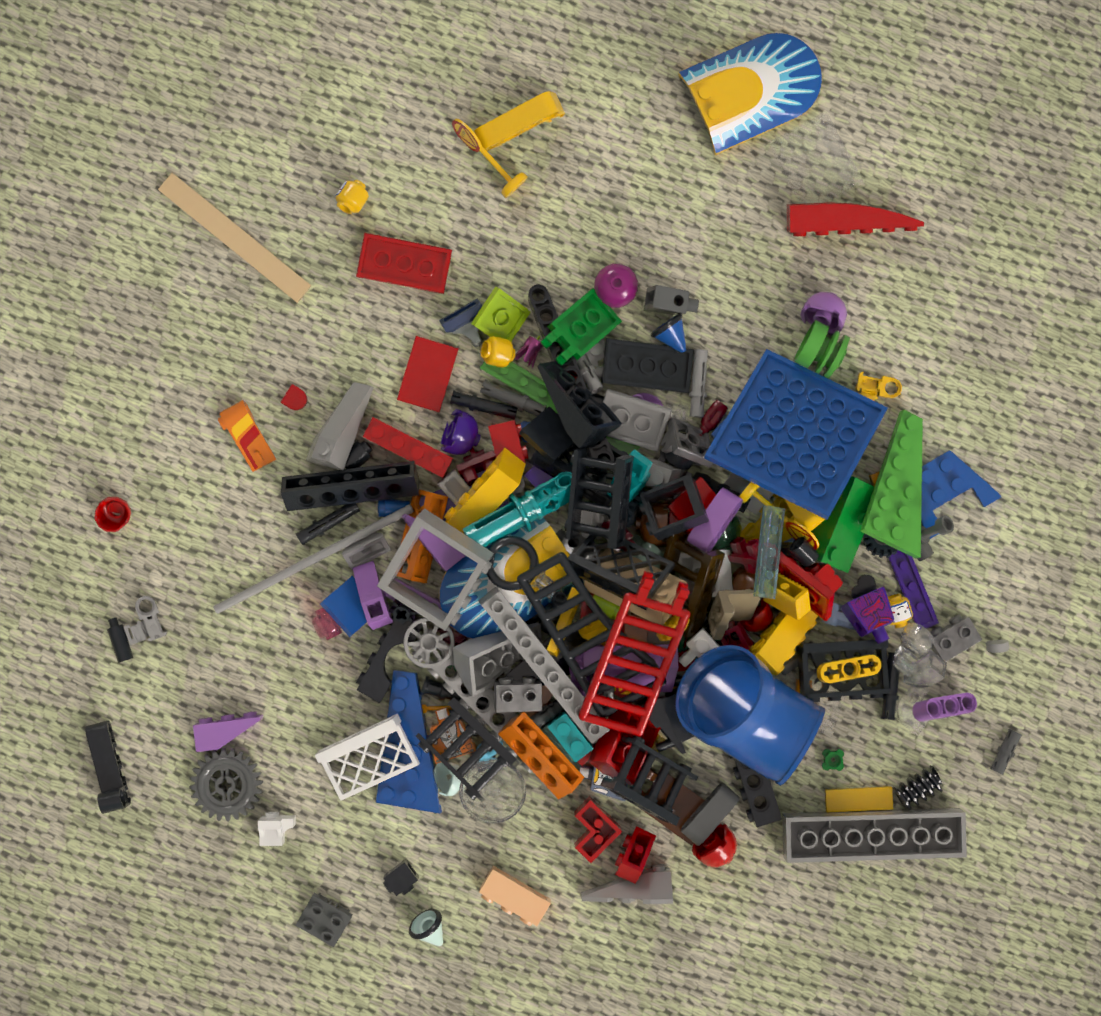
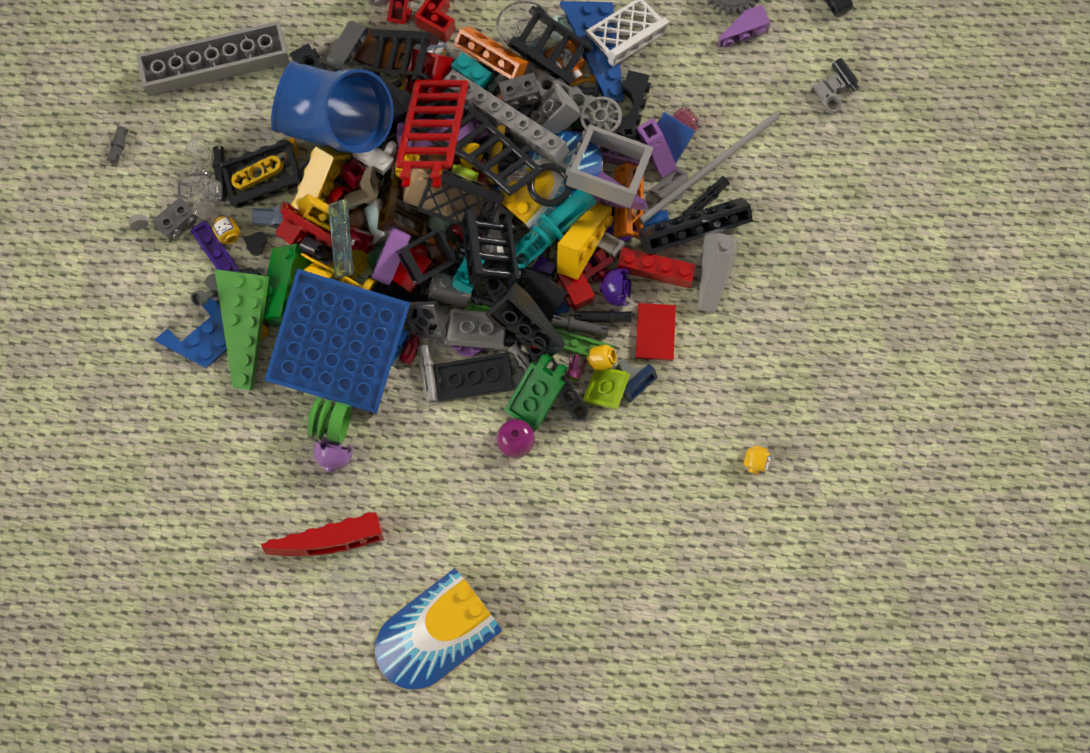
camera: 170 degrees right, 15 degrees down
(106, 519) = (880, 160): red hair -> none
(234, 237) = (846, 405): tan tile -> none
(246, 435) = (798, 256): orange door -> none
(295, 398) = (759, 288): red tile -> none
(358, 455) = (695, 253): black brick -> none
(404, 263) = (698, 415): red piece -> none
(471, 140) = (623, 499): yellow piece -> none
(519, 120) = (630, 555): yellow beam -> none
(661, 300) = (467, 432): dark grey torso -> none
(672, 333) = (460, 407): blue hat -> none
(717, 848) = (335, 22): red cylinder -> none
(837, 764) = (252, 106): green plate -> none
(859, 799) = (230, 85): yellow tile -> none
(869, 386) = (281, 400): yellow piece -> none
(870, 614) = (247, 218): dark purple torso -> none
(918, 788) = (183, 100): black piece -> none
(944, 707) = (173, 162): medium lavender beam -> none

